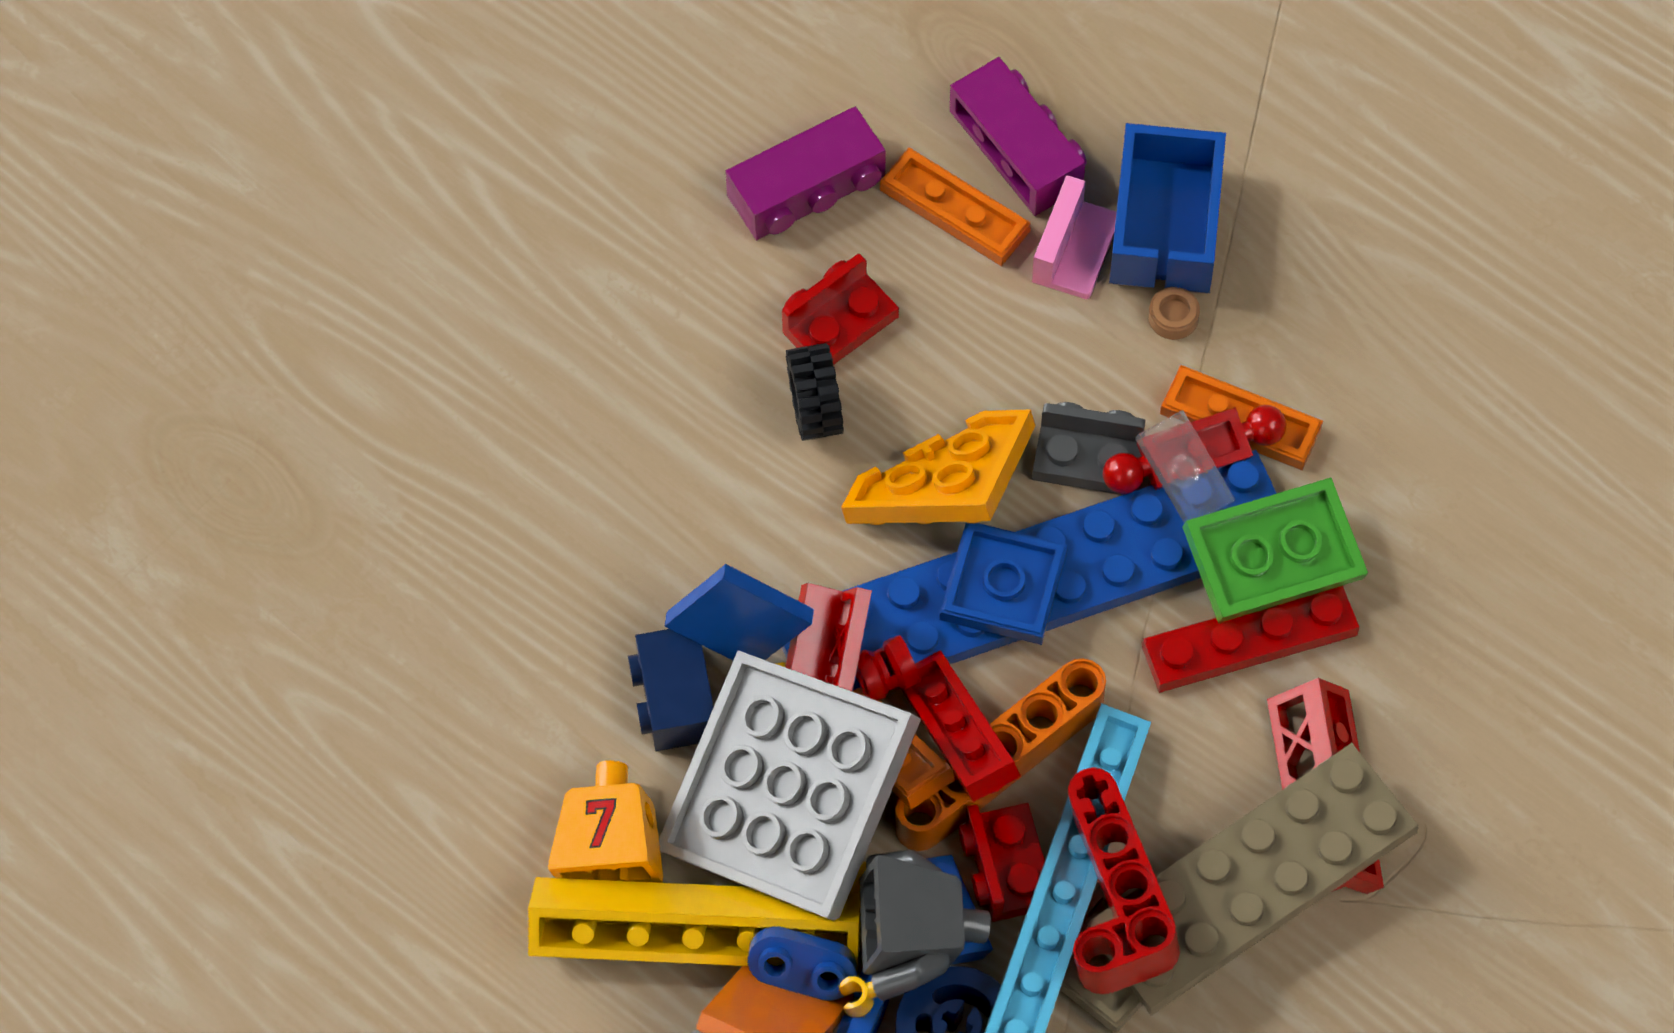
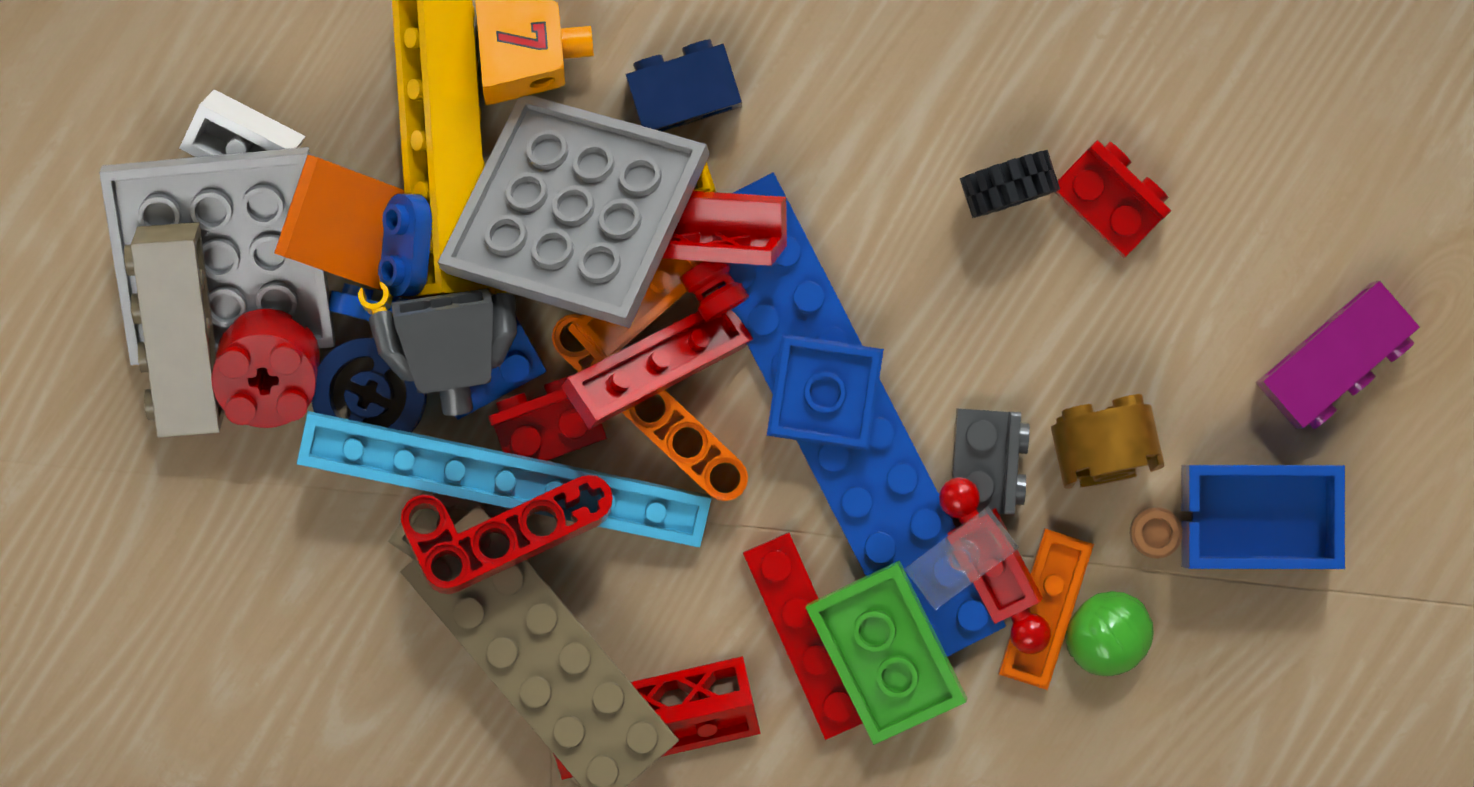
camera: 80 degrees right, 25 degrees up
(738, 614) = (737, 141): blue tile -> none
(806, 173) = (1267, 146): magenta brick -> none
(945, 478) = (935, 326): light orange plate -> none
(955, 206) = (1254, 300): orange tile -> none
(1073, 242) = (1223, 427): bright pink panel -> none
(1080, 332) = (1106, 443): none -> pearl gold brick
(1272, 359) = (1109, 634): none -> bright green hair

